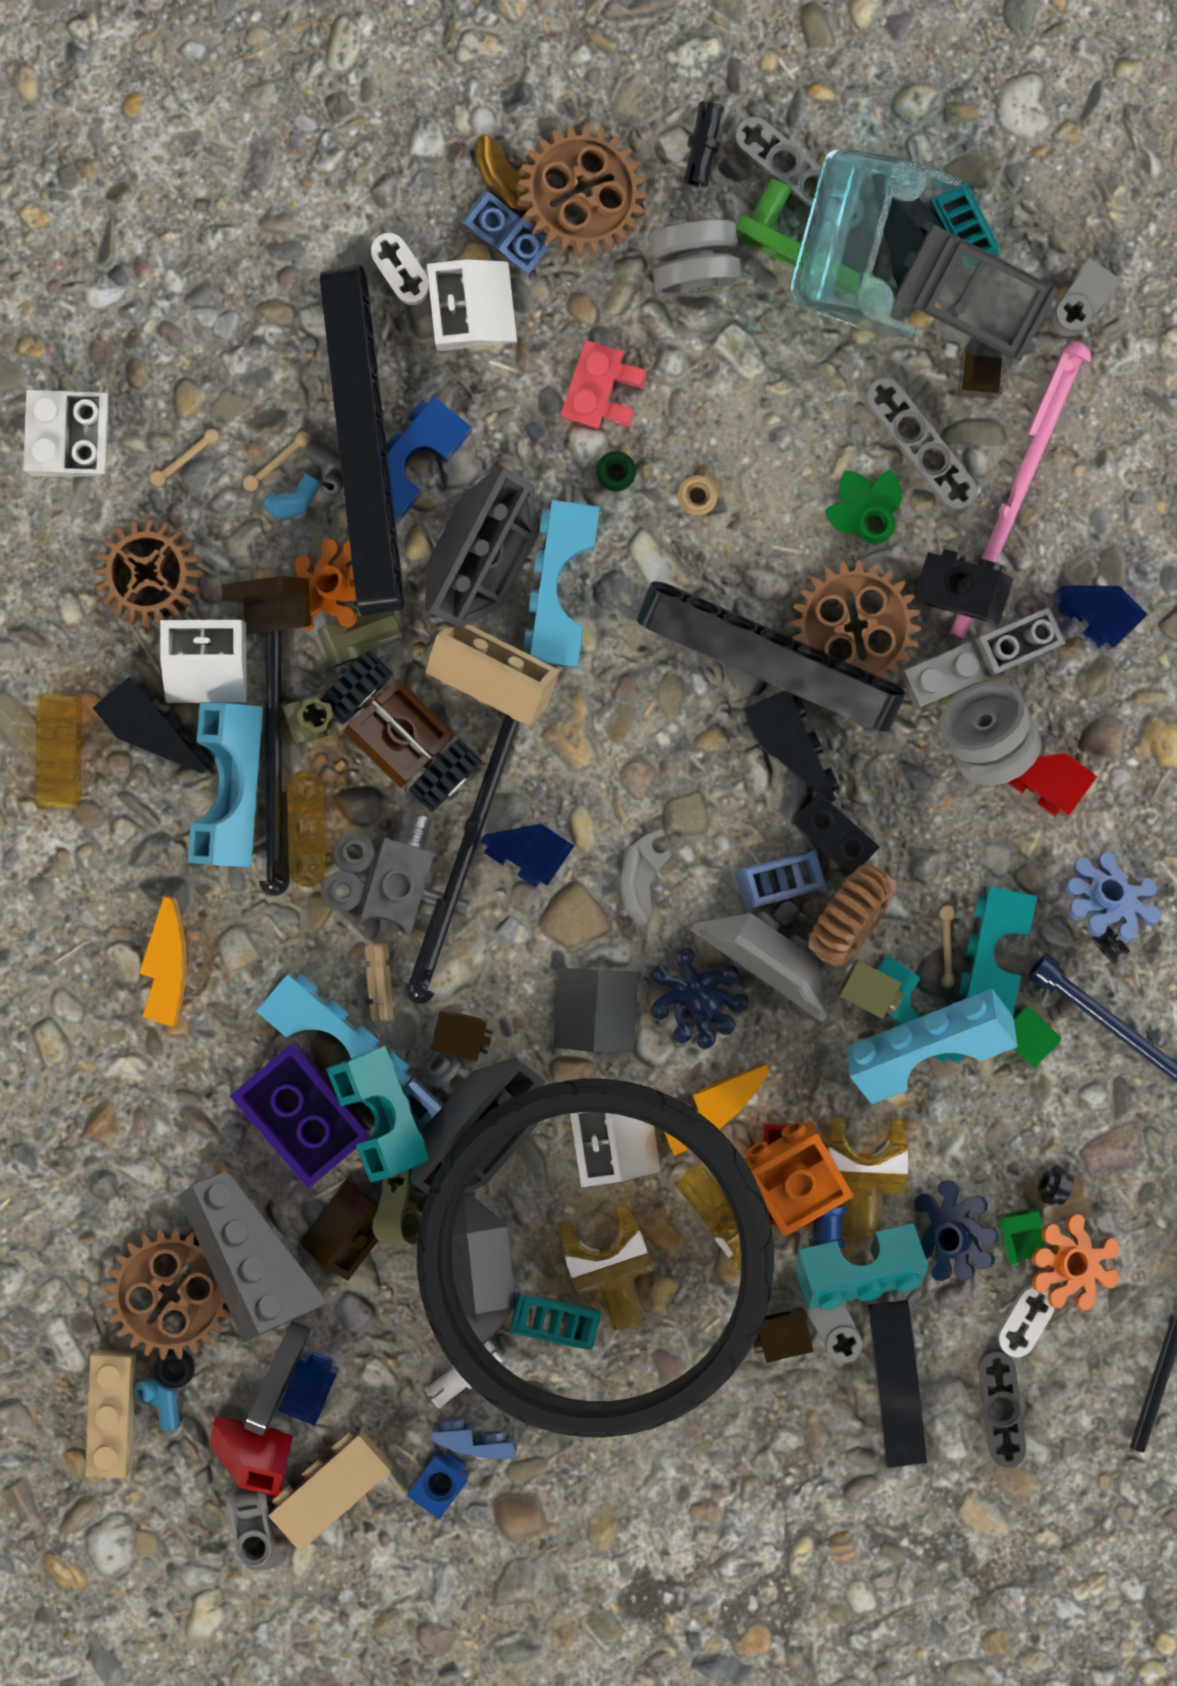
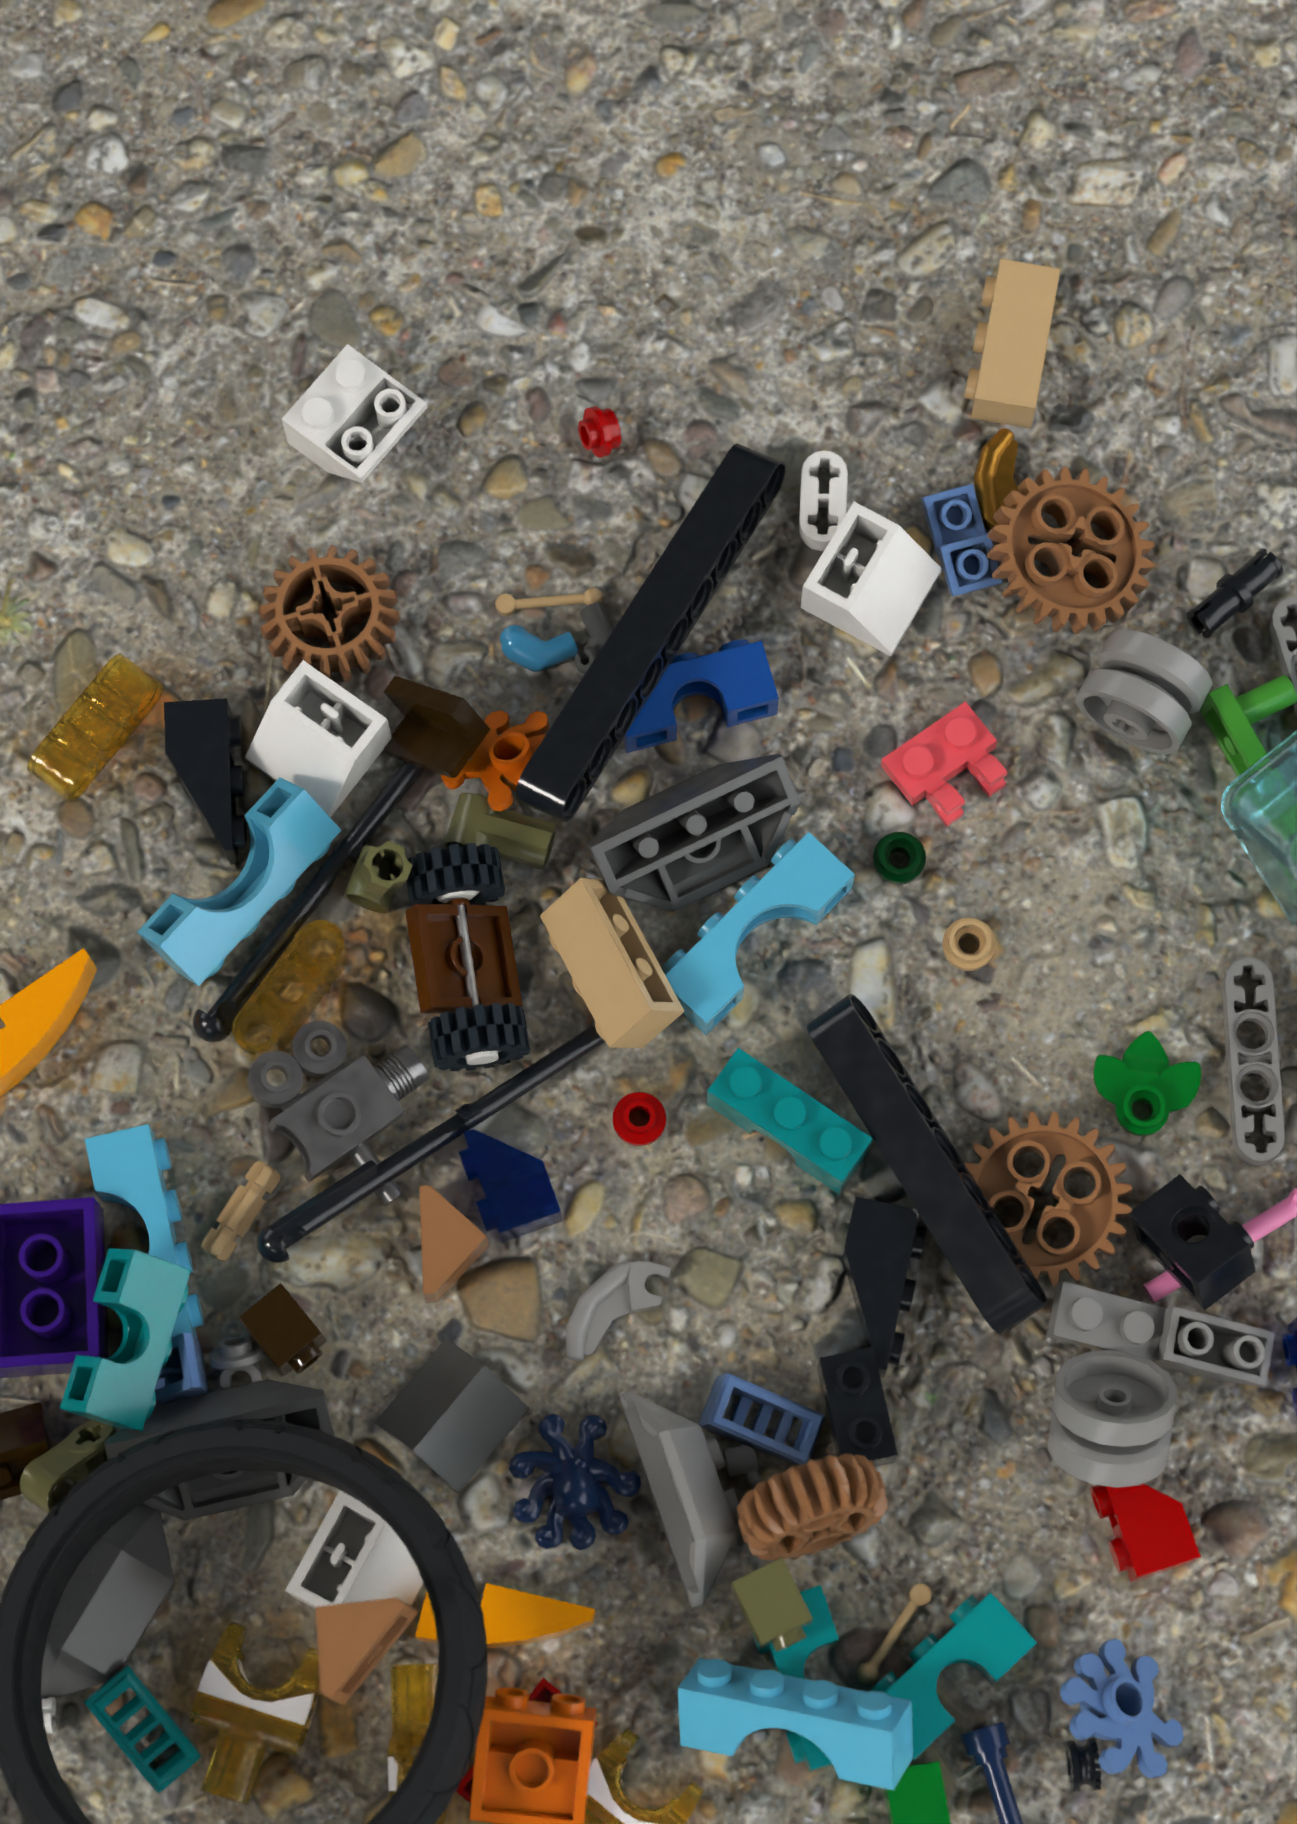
camera: 30 degrees right, 15 degrees down
(159, 478) = (415, 534): tan hinge -> none
(226, 326) = (599, 431): none -> red plate
(445, 74) = (1012, 343): none -> tan brick
(517, 911) = (447, 1243): none -> medium nougat slope
(583, 763) = (639, 1135): none -> red plate
(656, 1198) = (354, 1641): none -> medium nougat slope
(669, 688) = (808, 1130): none -> teal arch

